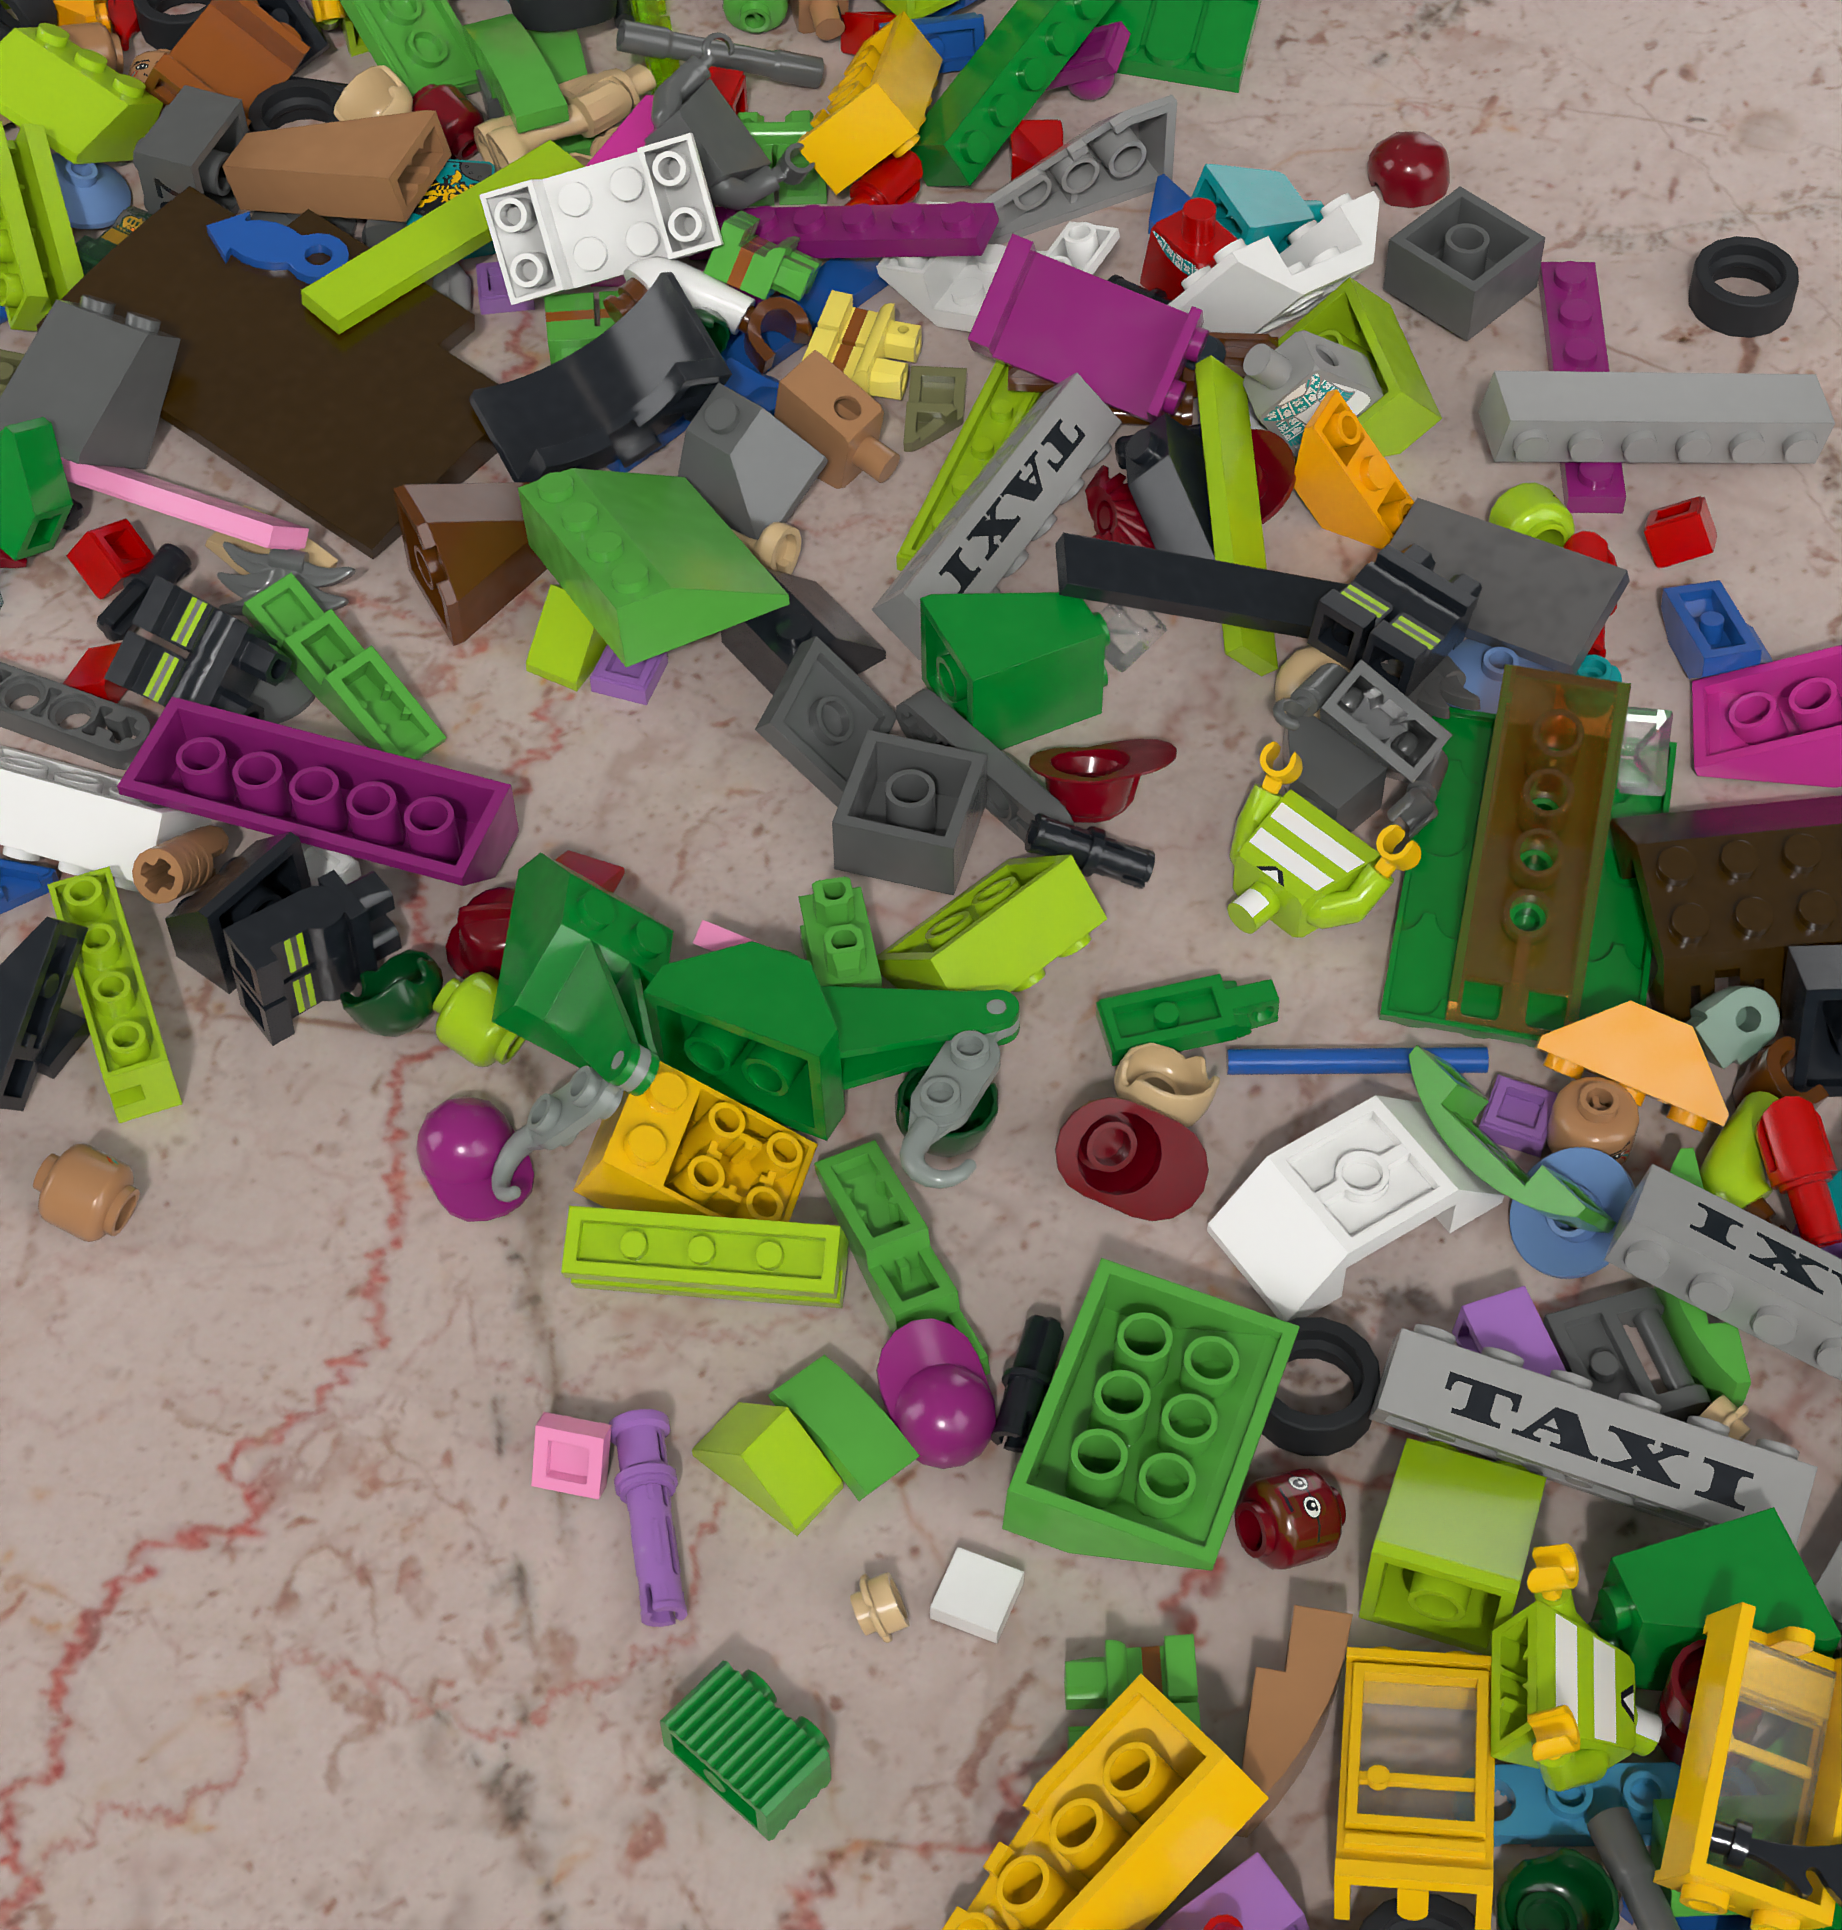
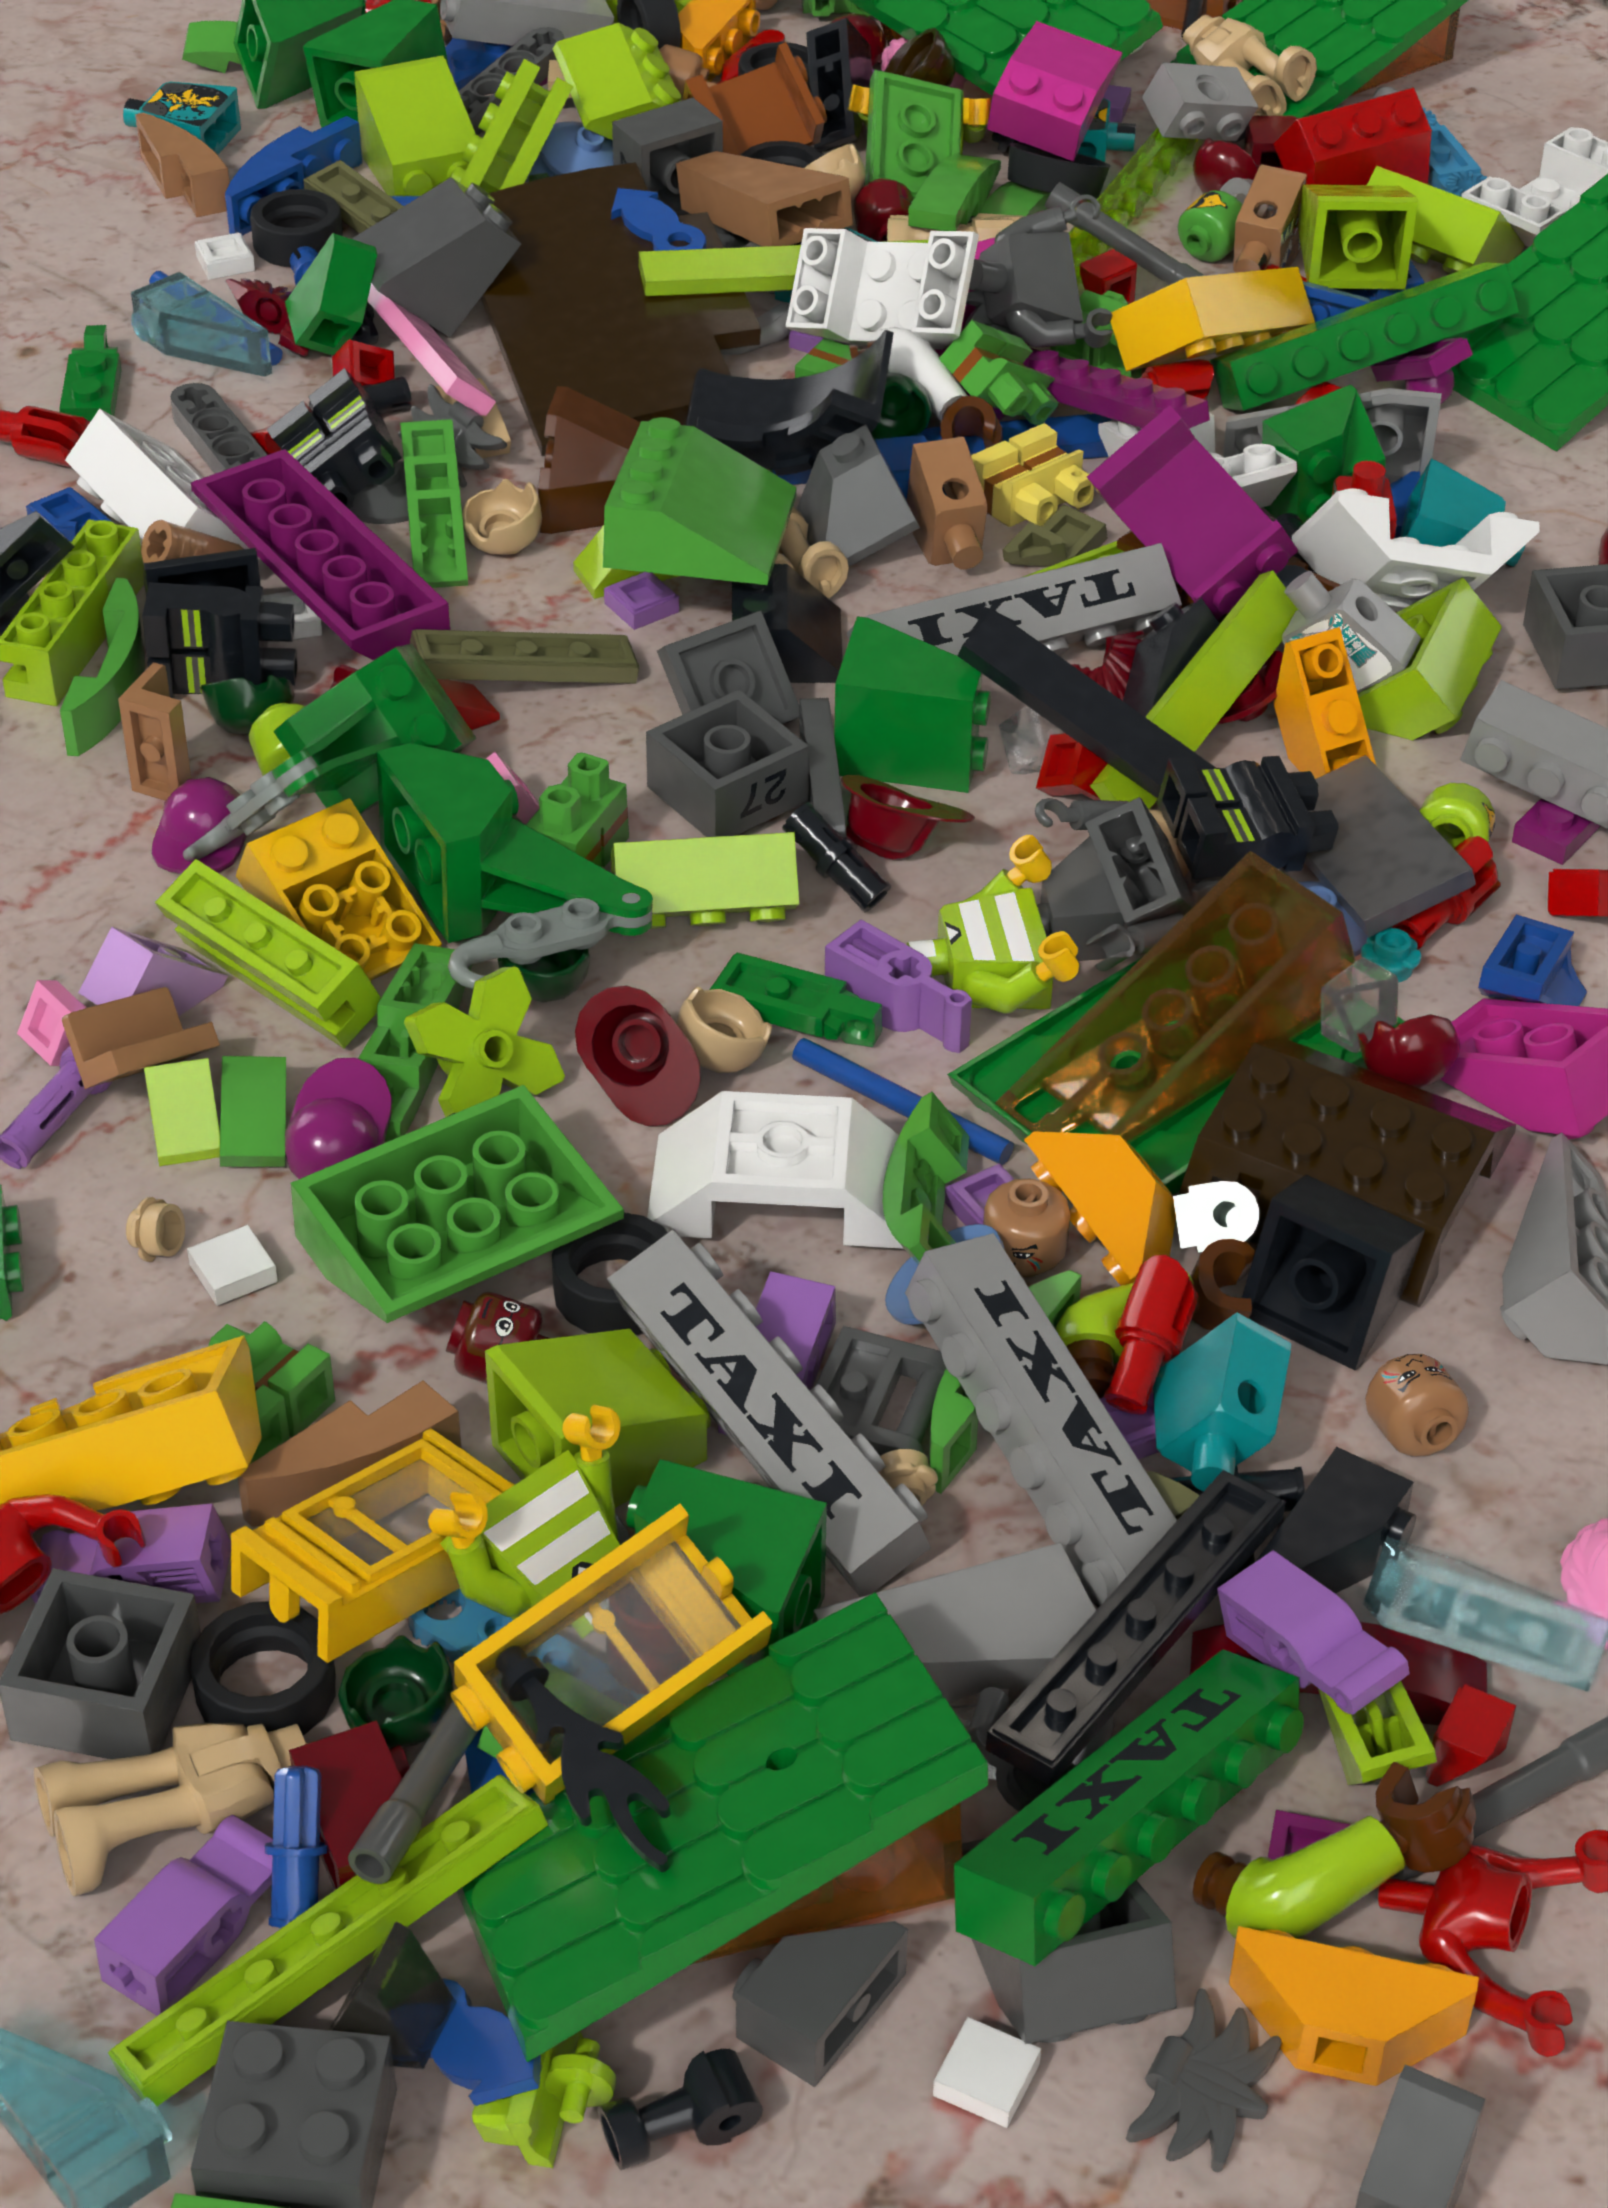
camera: 35 degrees right, 10 degrees down
(190, 982) = (92, 702): none -> bright green slope
(372, 1093) = (154, 735): none -> medium nougat panel
(428, 651) = (502, 518): none -> tan hair
(603, 795) = (527, 656): none -> olive tile
(613, 1355) = (138, 964): none -> lavender slope
(685, 1433) = (132, 1034): none -> medium nougat panel
(1001, 1236) = (483, 1046): none -> lime plant
(1112, 191) = (1326, 442): none -> green slope
(1186, 644) = (1068, 768): none -> red panel
(1260, 947) = (902, 981): none -> medium lavender piece
(1722, 775) = (1414, 1051): none -> dark red hair

